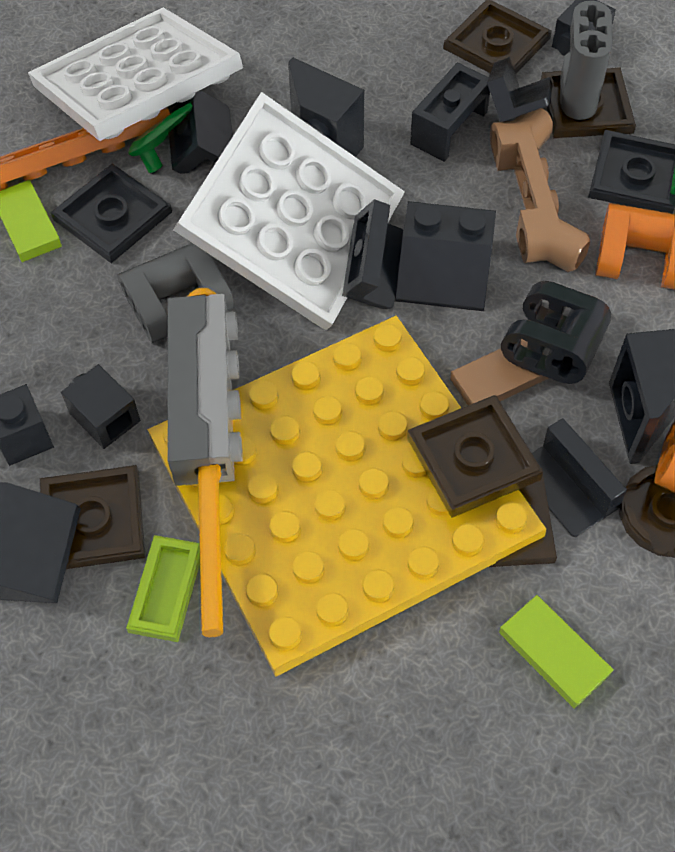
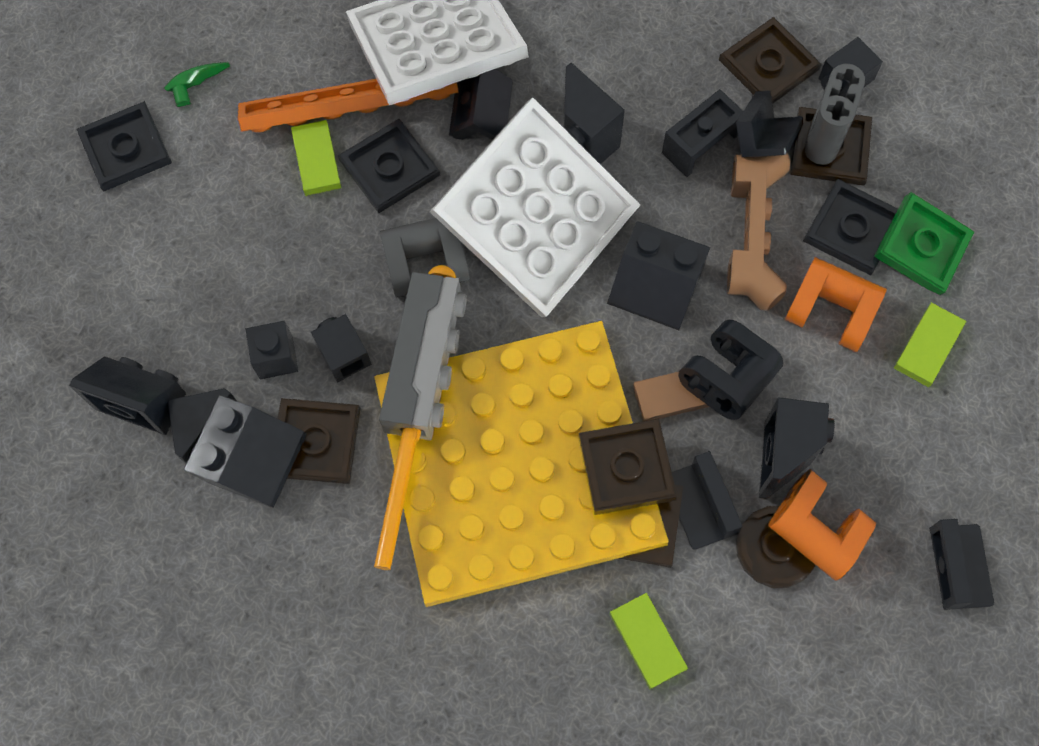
camera: 15 degrees right, 10 degrees up
(154, 136) = (438, 103): green bar -> none
(165, 589) = (358, 514): lime tile -> none
(373, 257) = (595, 264): black panel -> none

